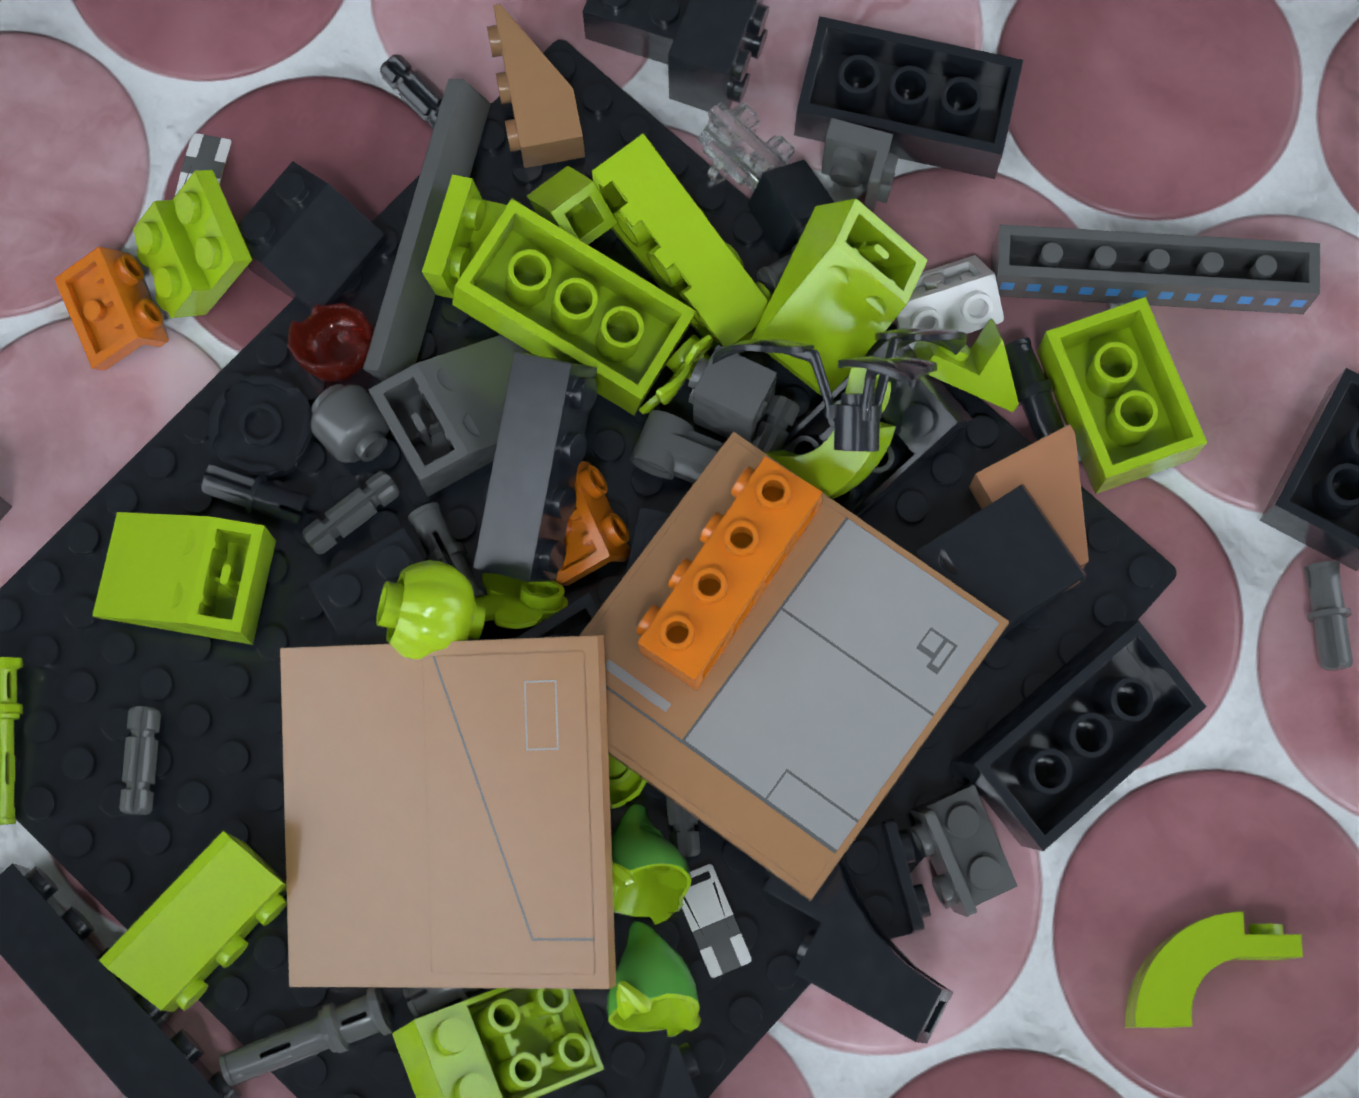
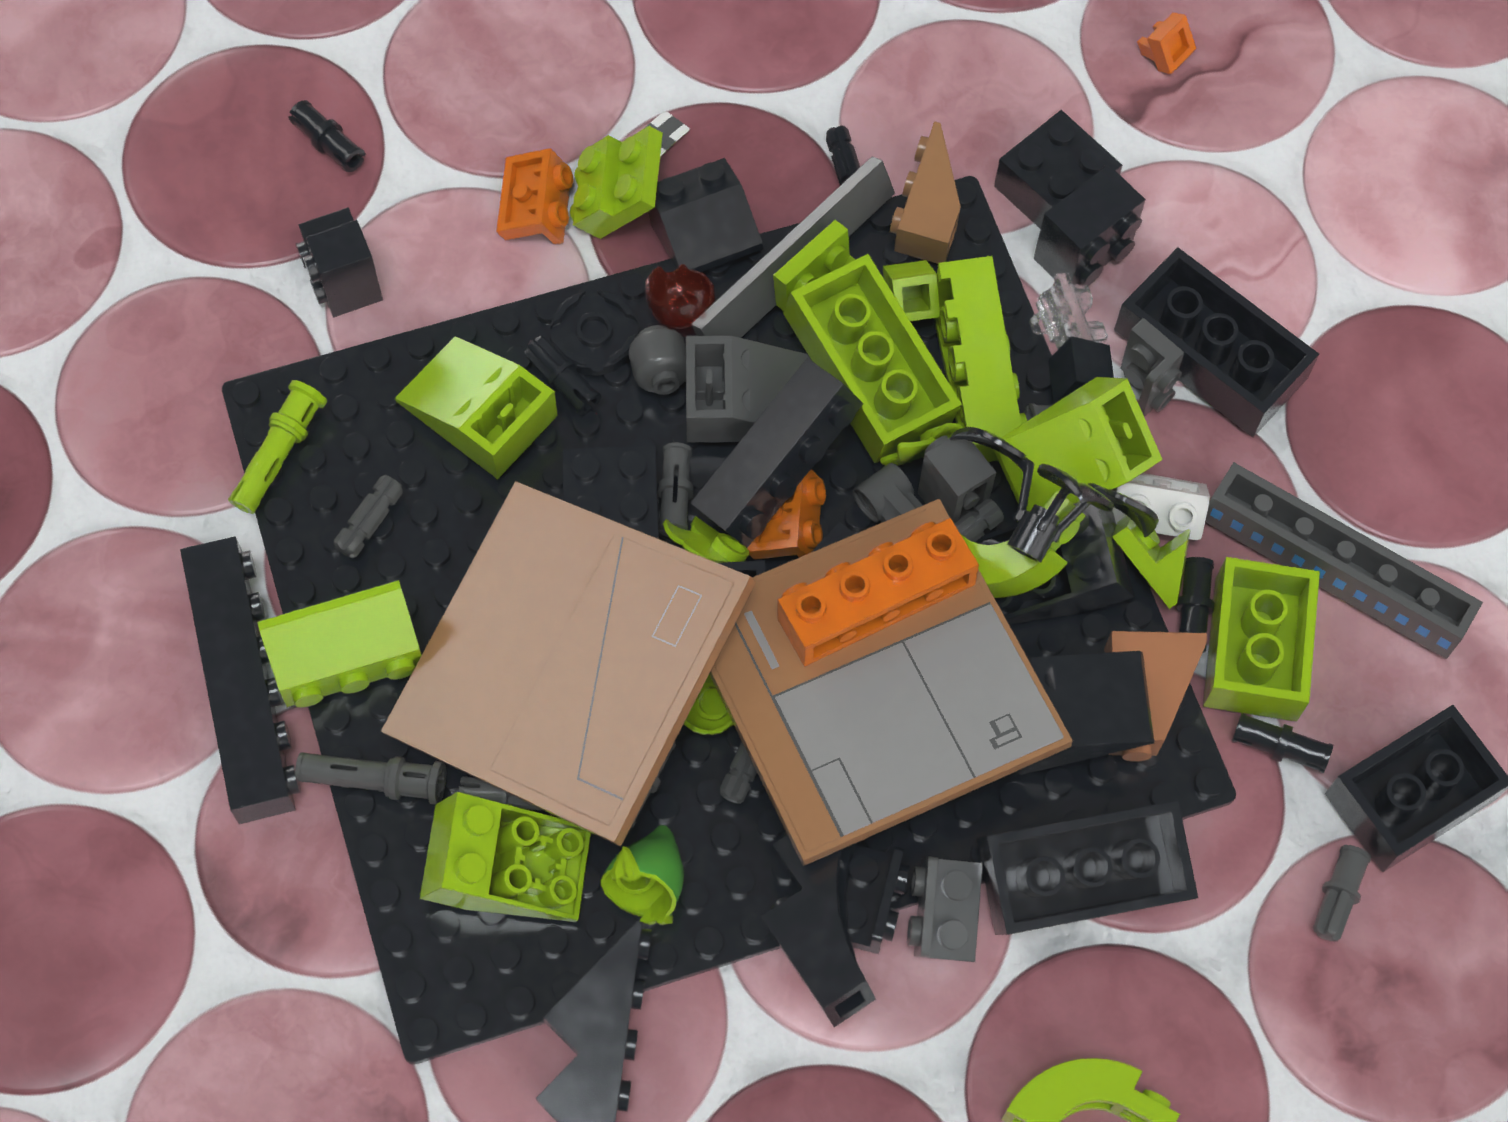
camera: 25 degrees right, 10 degrees down
(350, 512) = (623, 423): dark grey axle -> none
(429, 609) = (639, 504): lime plant -> none
(646, 869) = (690, 788): hat -> none
(714, 923) = (722, 858): sticker -> none
(1194, 491) = (1283, 743): none -> black pin

